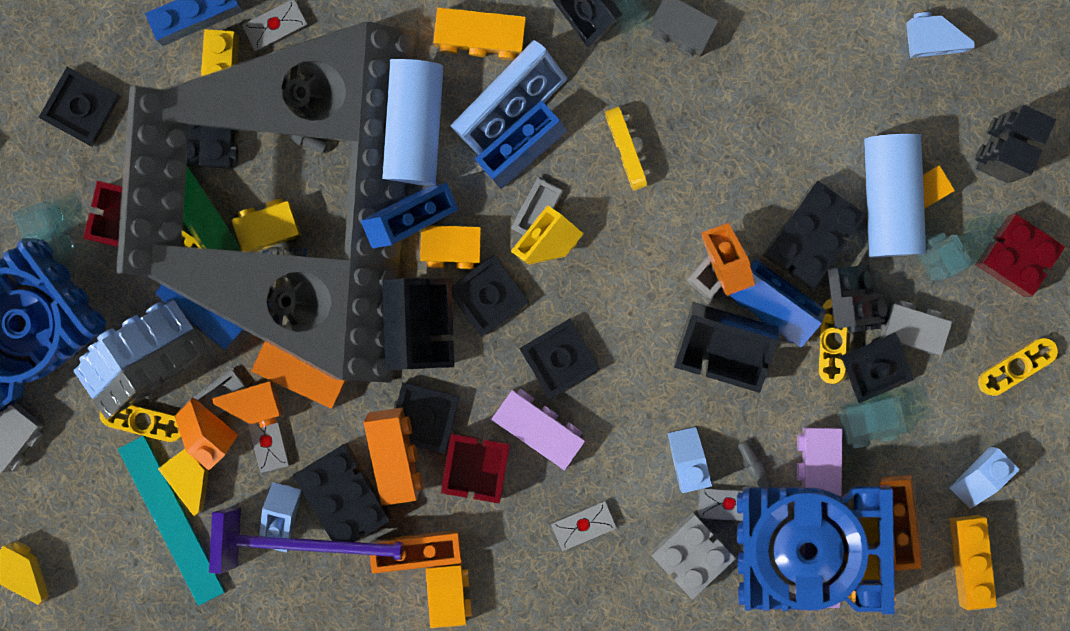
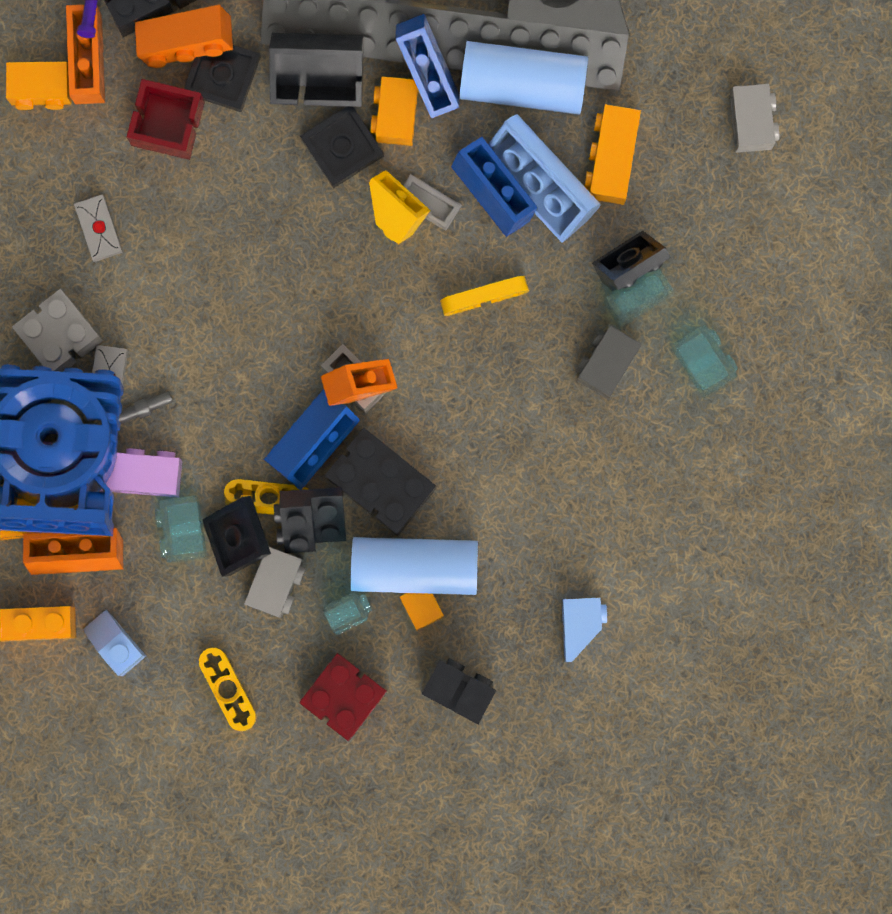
camera: 90 degrees right, 5 degrees down
(539, 428) = (201, 187): lavender brick -> none
(559, 358) = (272, 214): black plate -> none
(689, 460) = (156, 338): light blue slope -> none
(730, 346) = (271, 391): black piece -> none

